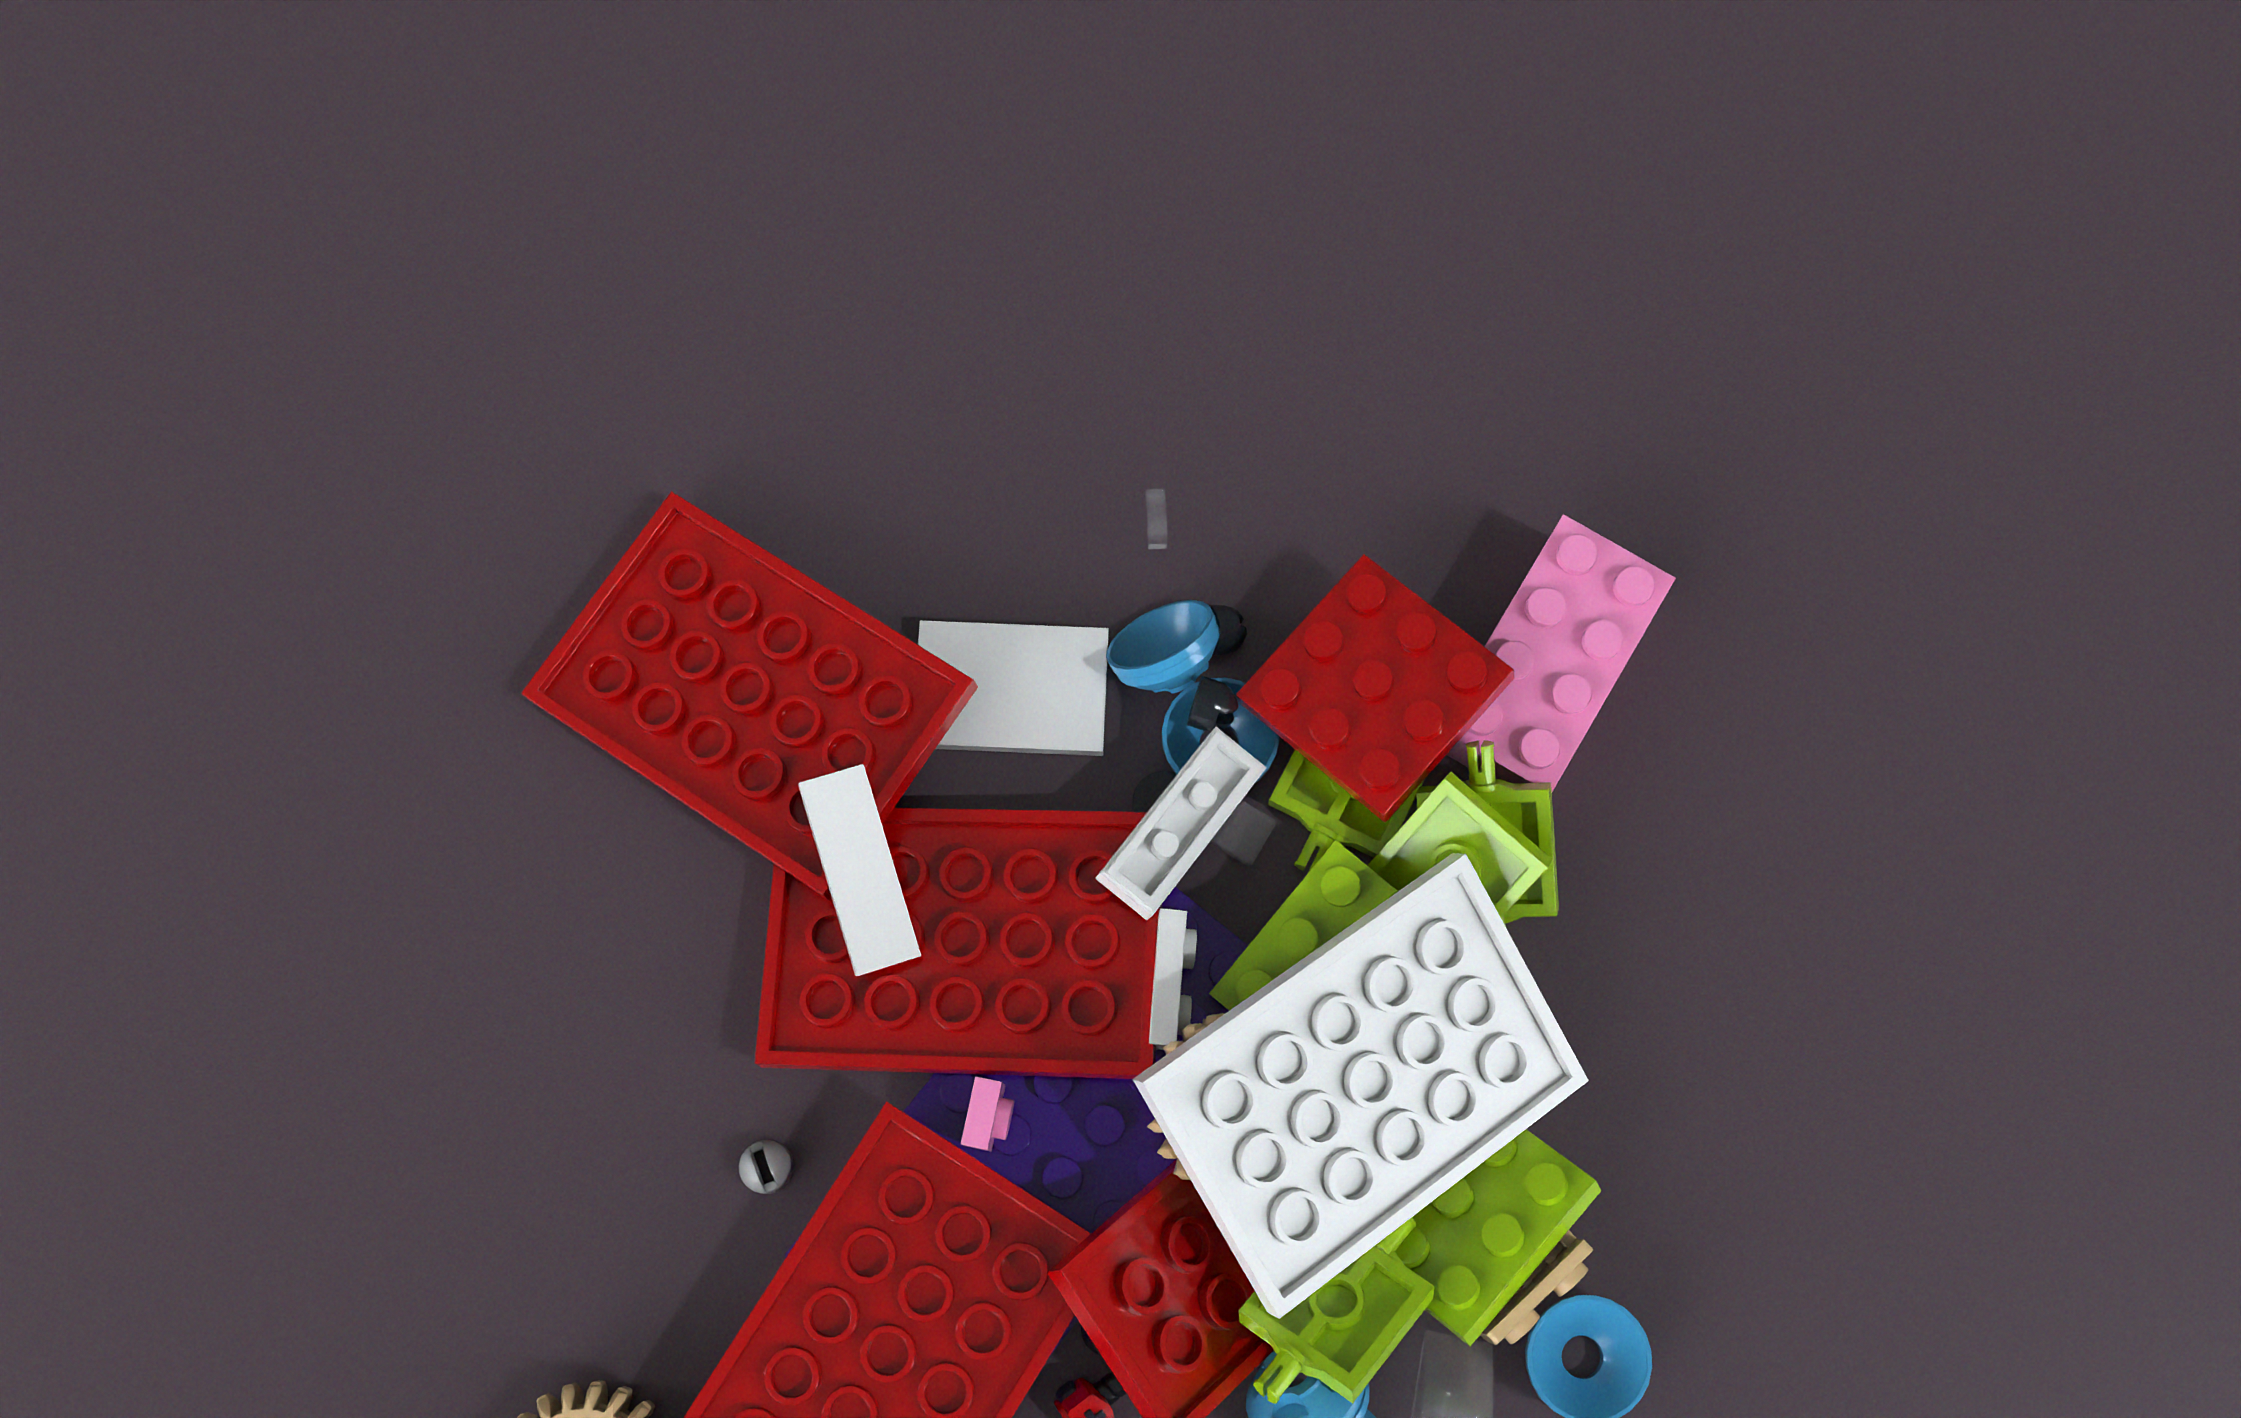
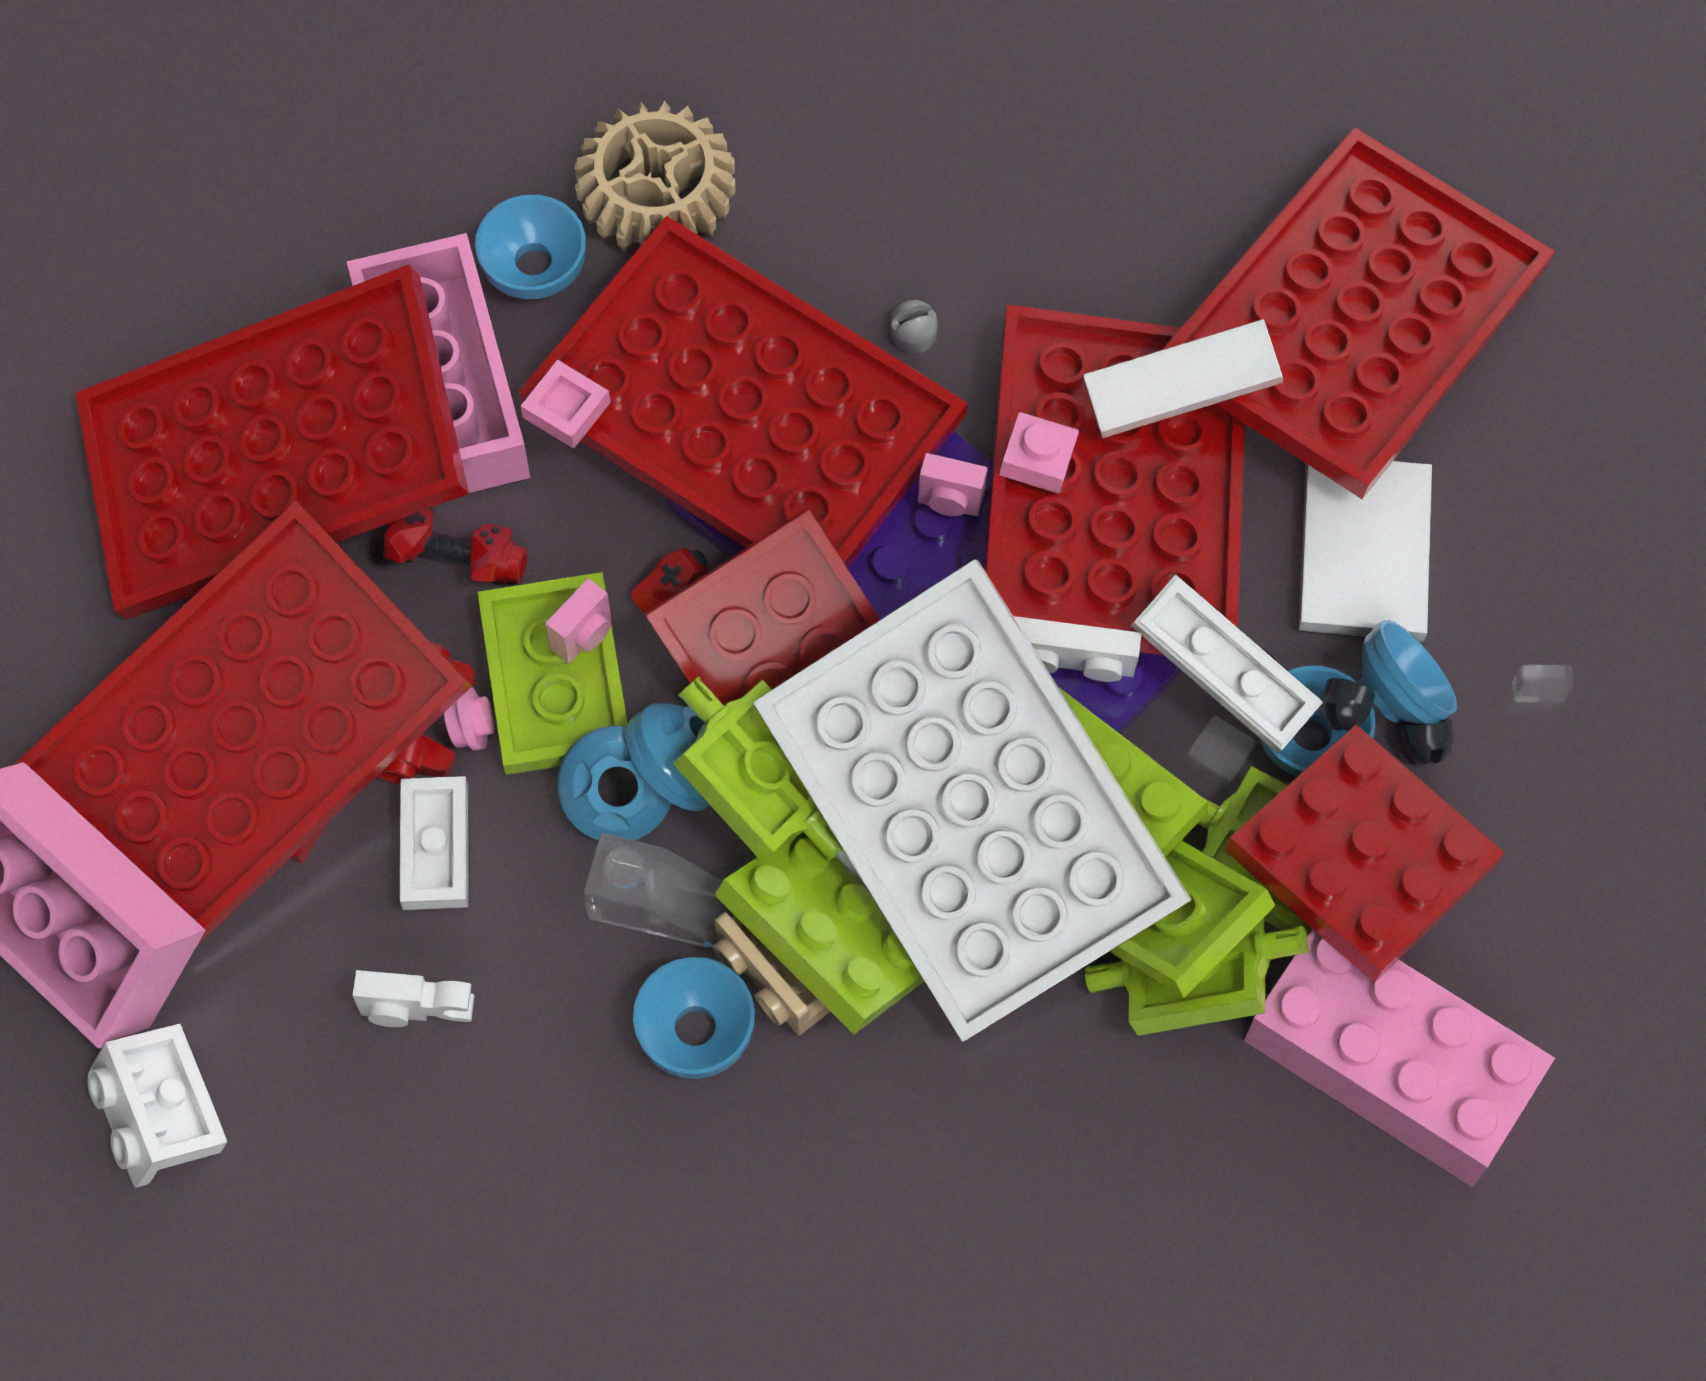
camera: 90 degrees right, 10 degrees down
(948, 1021) = (1039, 452): none -> bright pink plate

